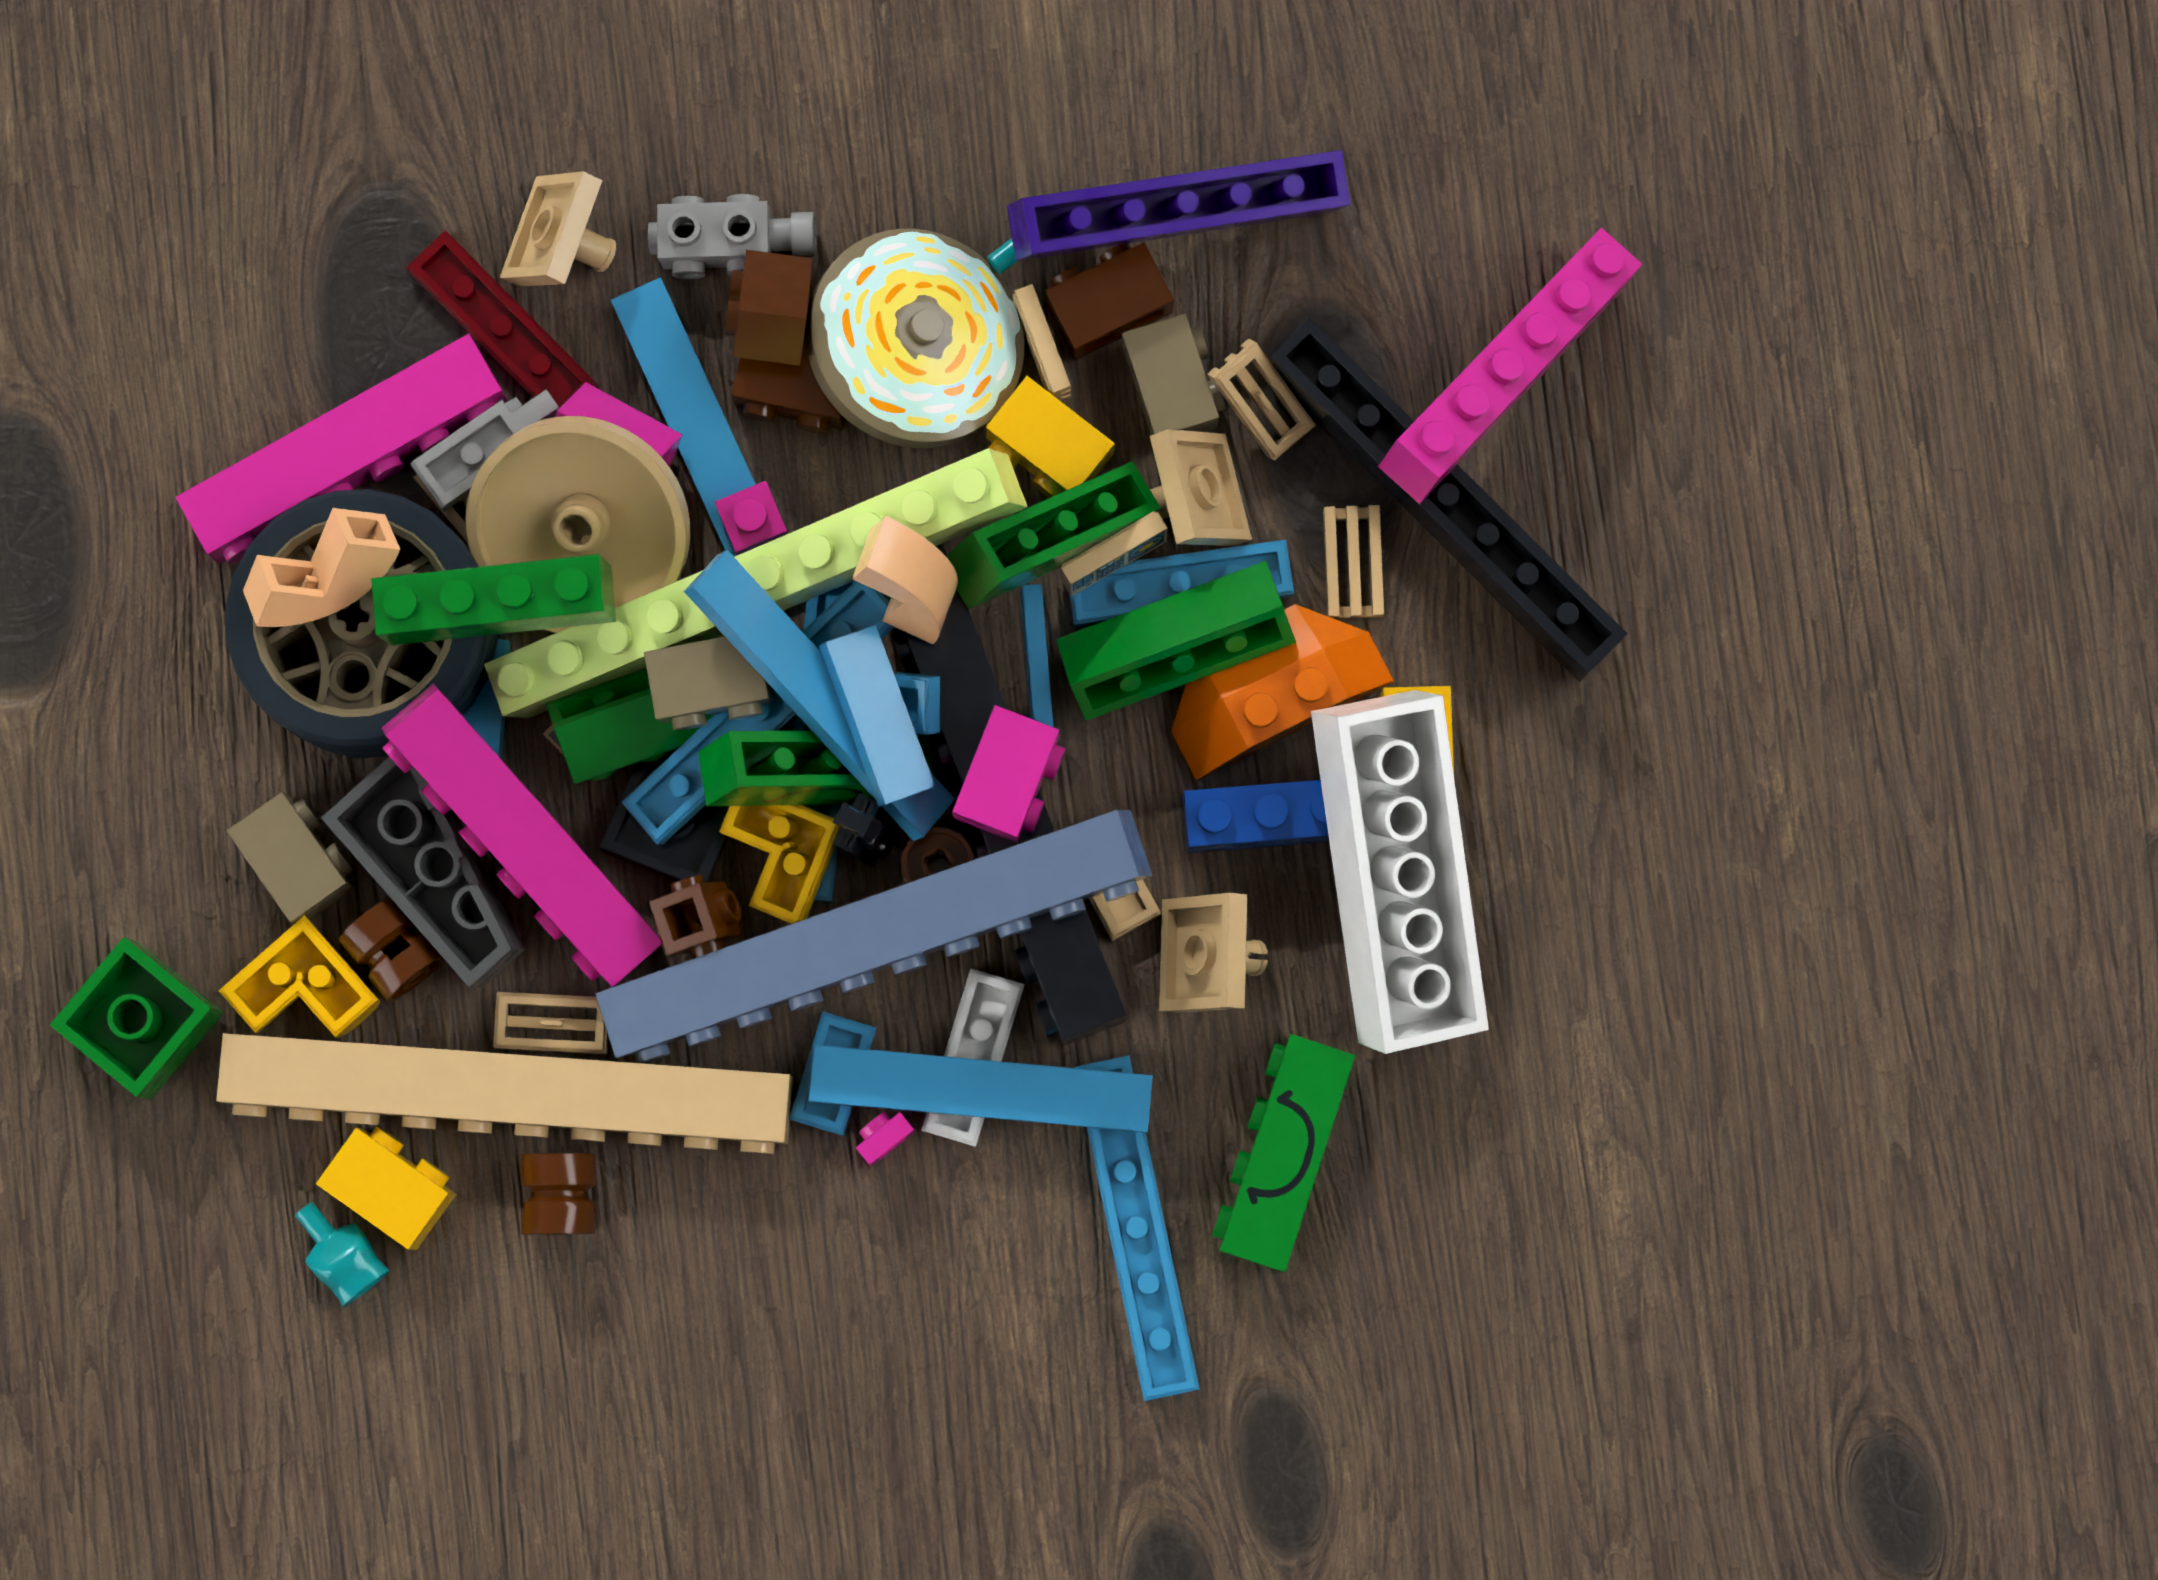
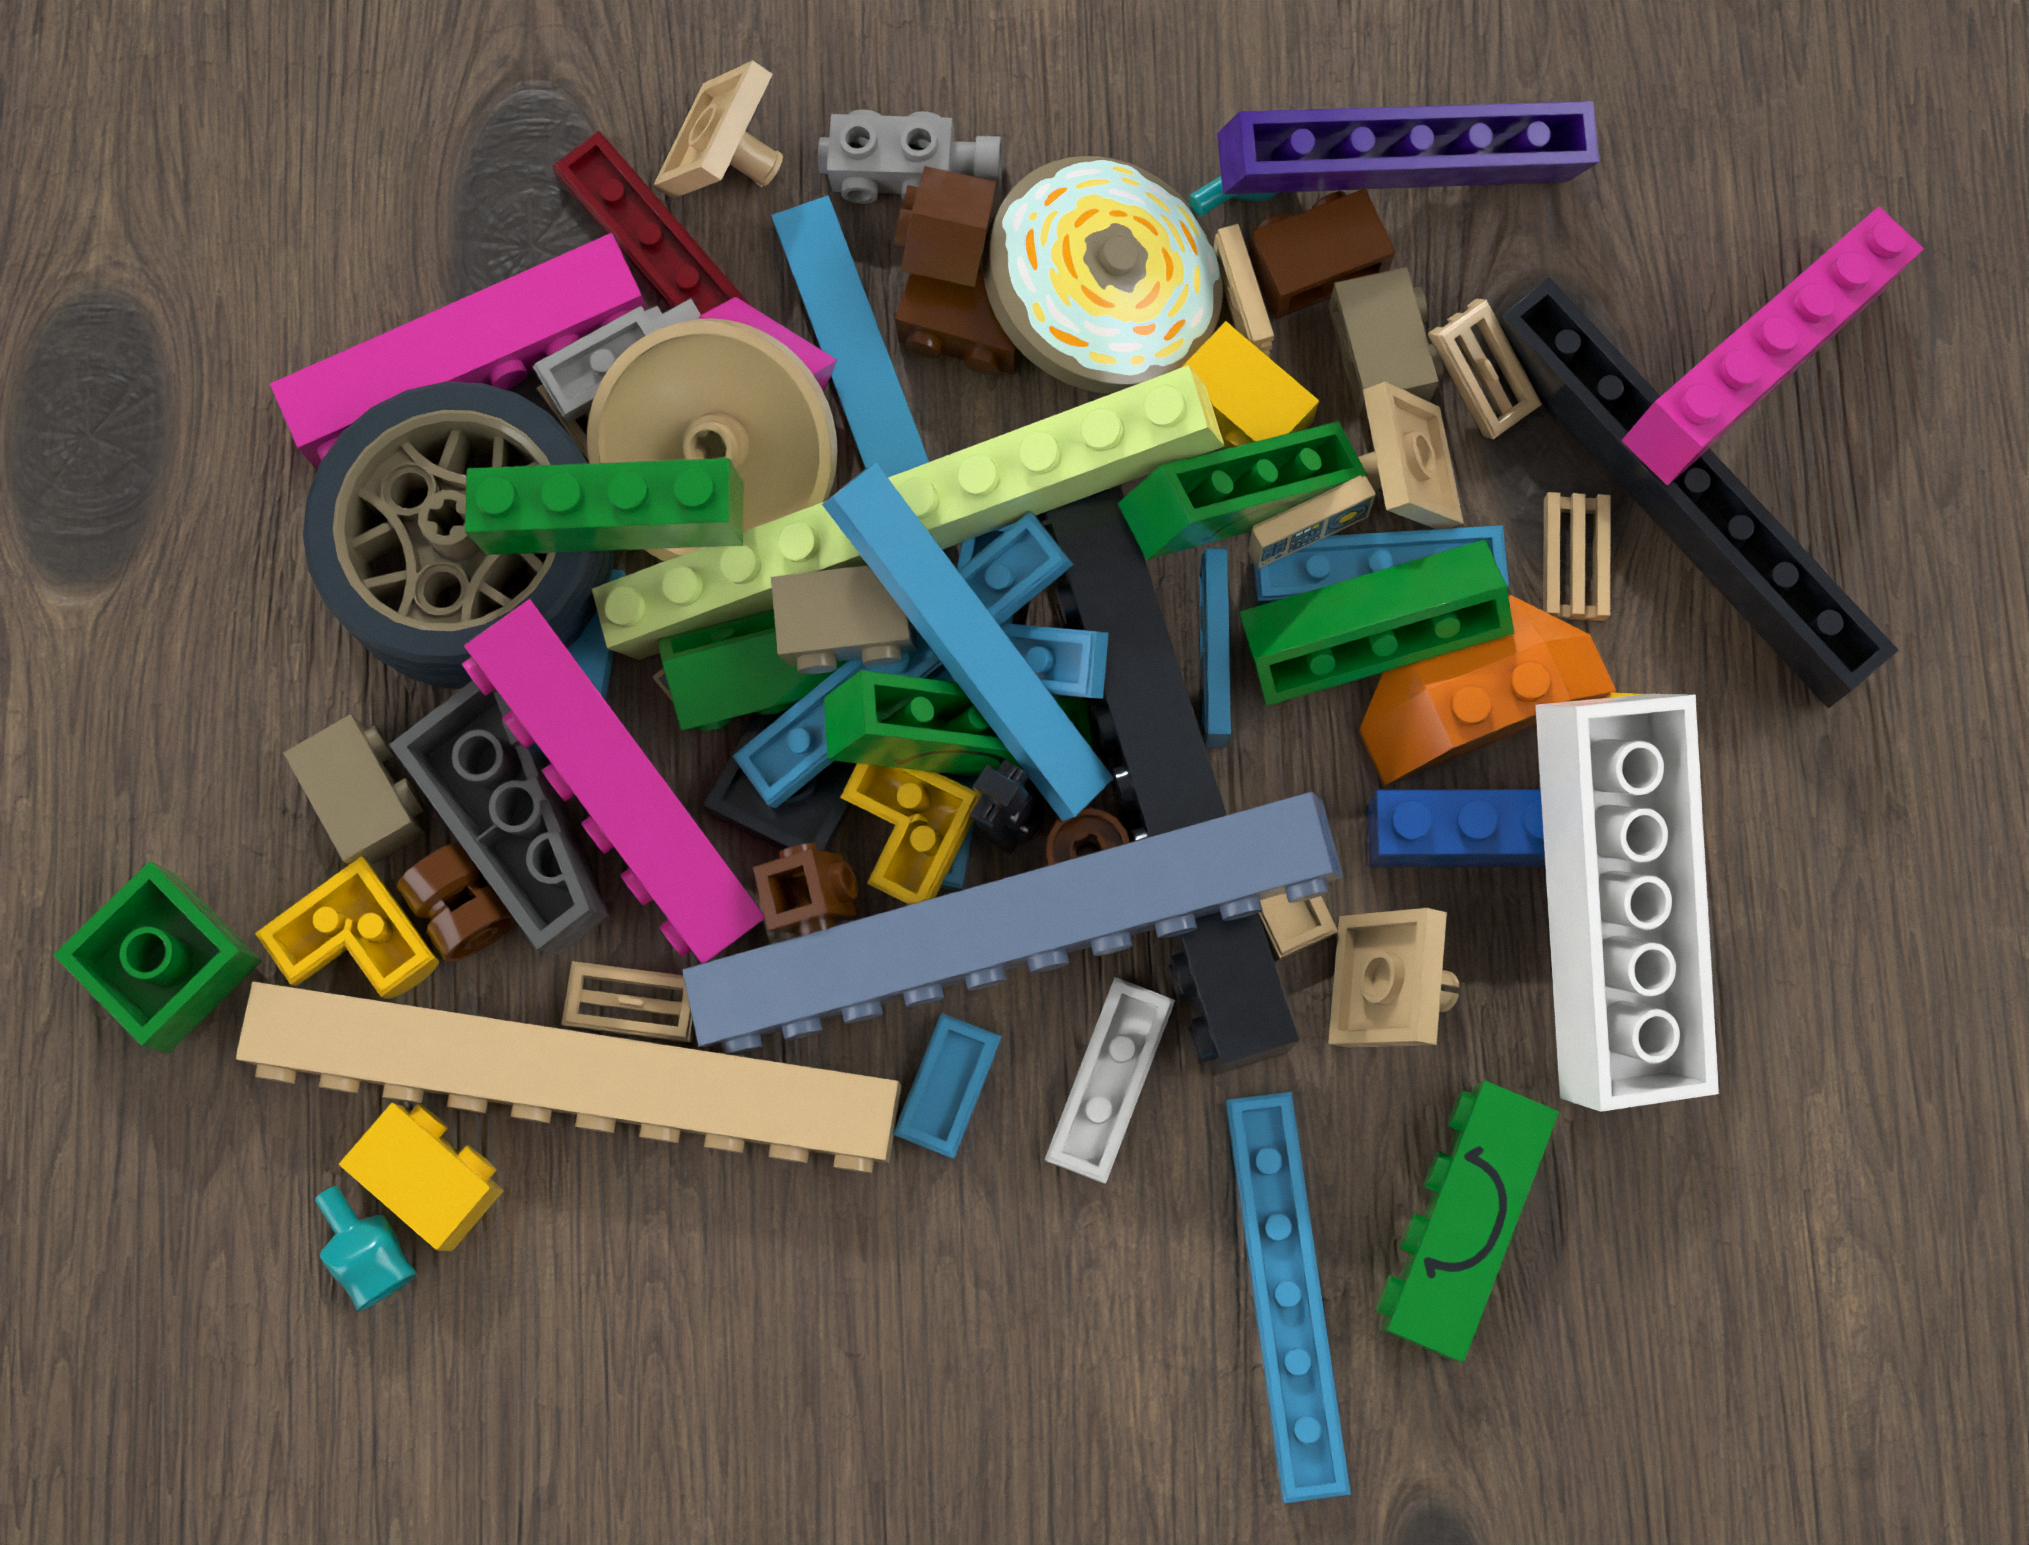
camera: 10 degrees right, 5 degrees down
(340, 572) = (391, 485): light nougat brick -> none
(558, 1193) = (618, 1199): reddish brown wheel -> none
(751, 517) = (903, 446): dark pink plate -> none
(877, 715) = (1033, 670): dark azure tile -> none
(883, 1136) = (1000, 1162): dark pink plate -> none
(911, 574) = (1091, 503): light nougat brick -> none
(980, 1088) = (1118, 1116): dark azure tile -> none
(1008, 774) = (1180, 748): dark pink brick -> none

